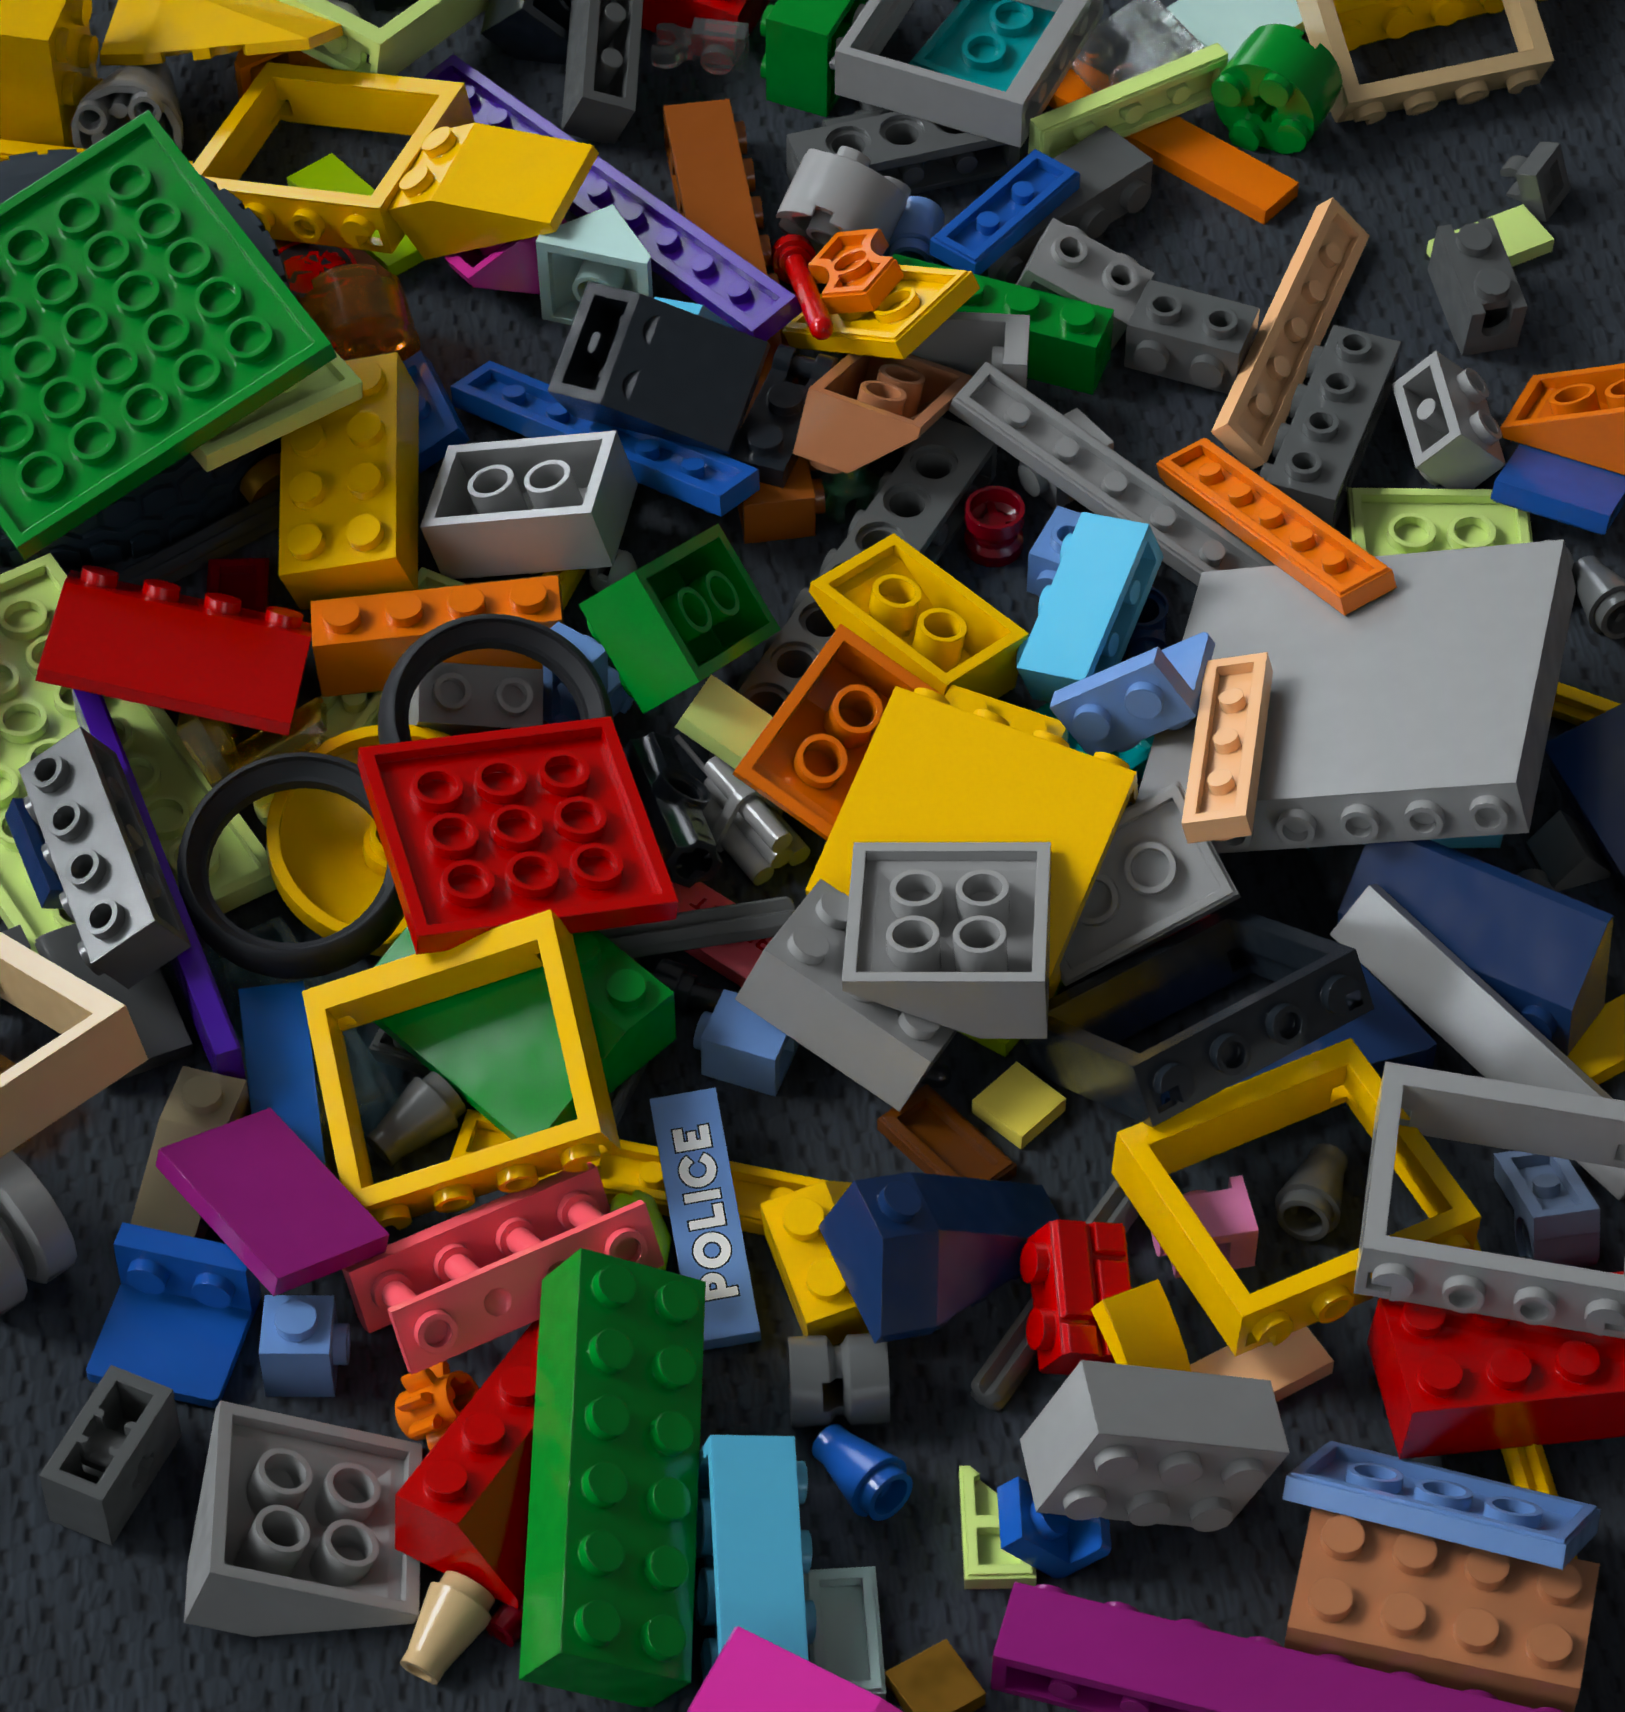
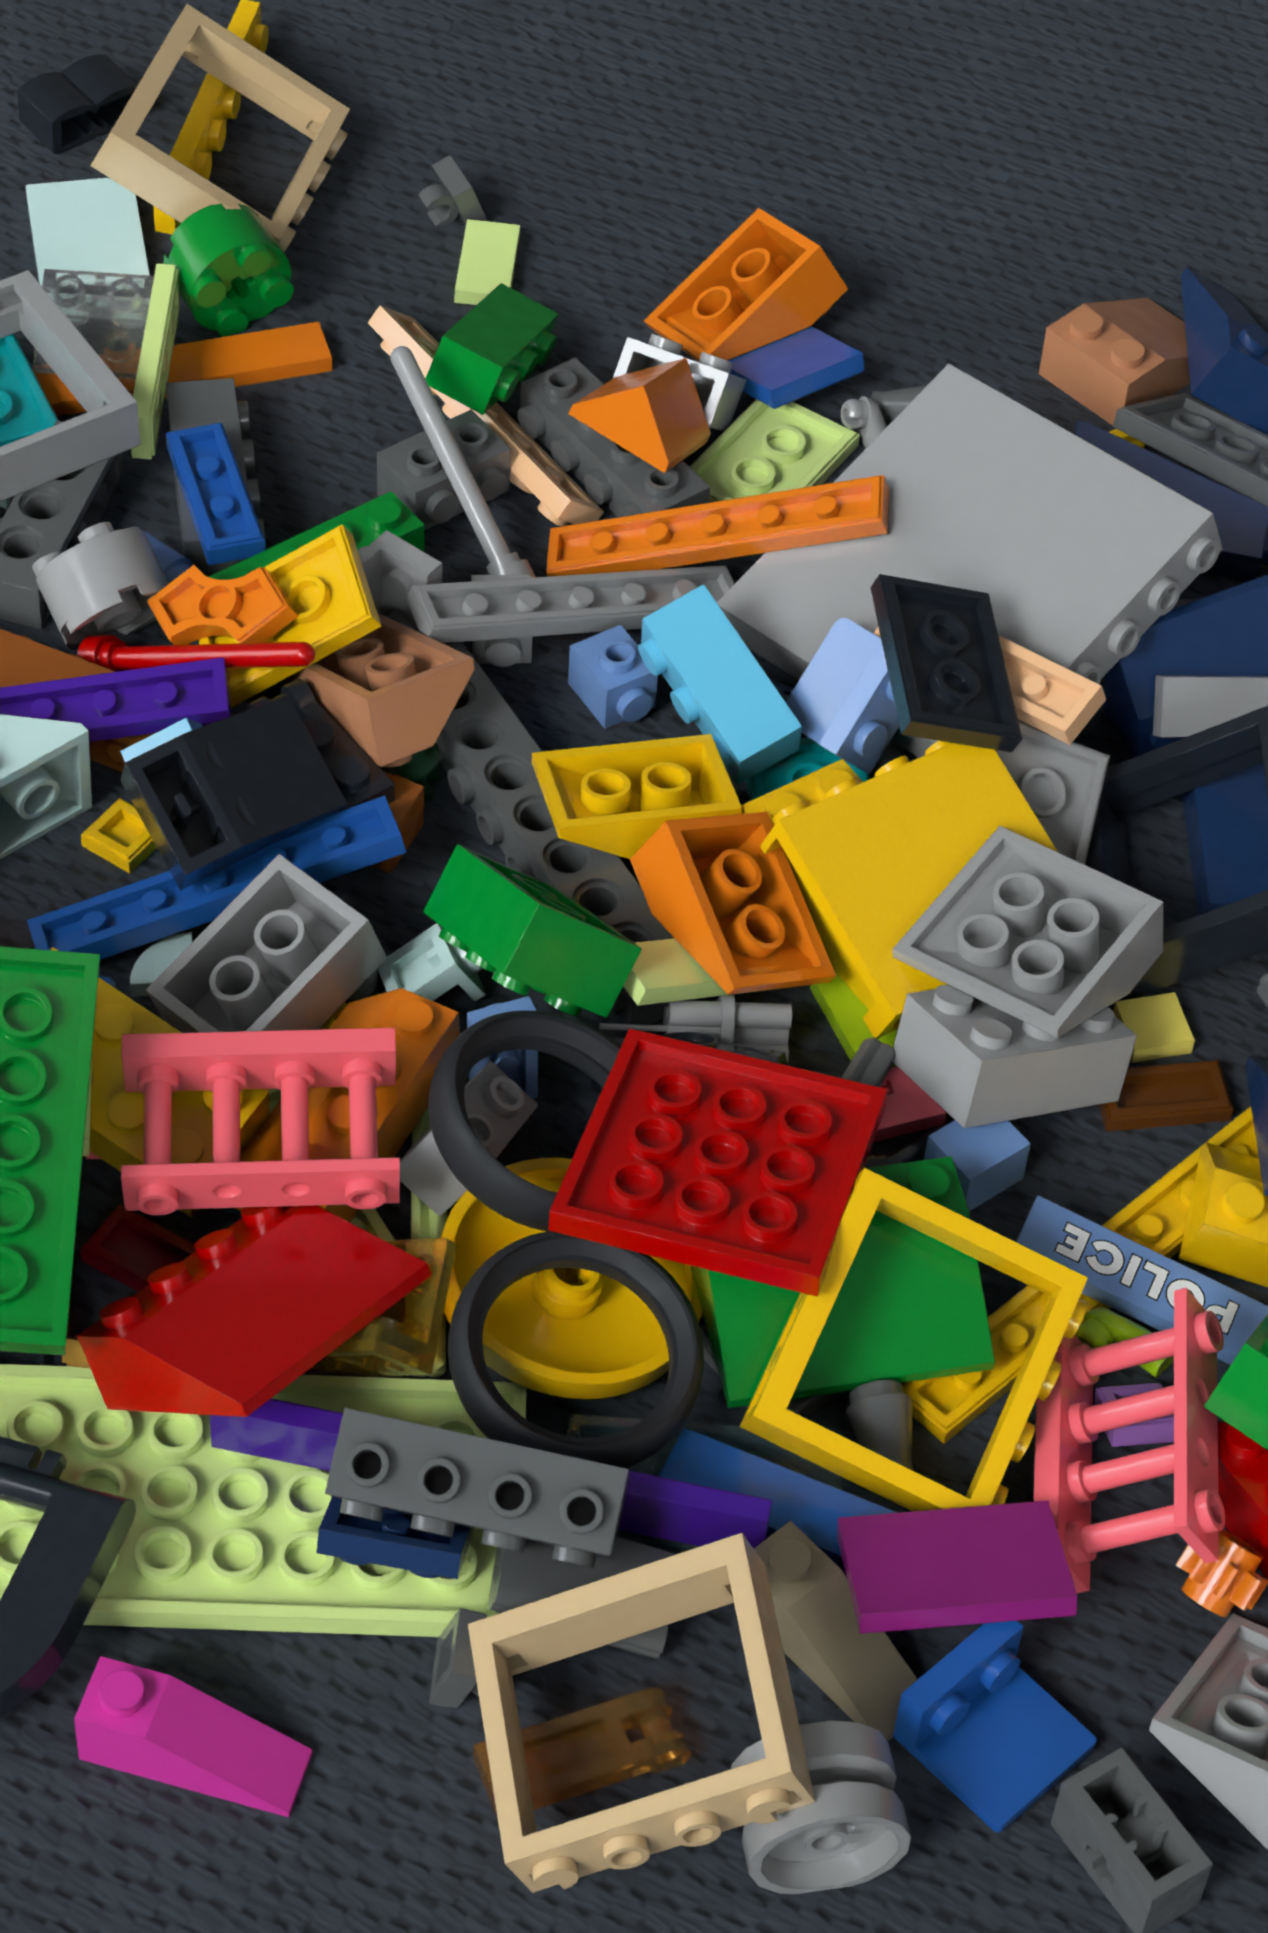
camera: 60 degrees left, 0 degrees up
(302, 1345) = (1095, 1644): medium blue brick -> none
(362, 503) = (260, 1060): none -> coral fence
(994, 526) = (538, 699): dark red wheel -> none
(1087, 271) = (321, 487): light grey brick -> none
(1127, 428) = (500, 558): none -> light grey piece
(1168, 700) = (945, 663): none -> black tile
(1350, 284) = (493, 349): none -> green brick
(1361, 415) = (649, 413): none -> orange slope
(1473, 277) = (554, 279): dark grey brick -> none

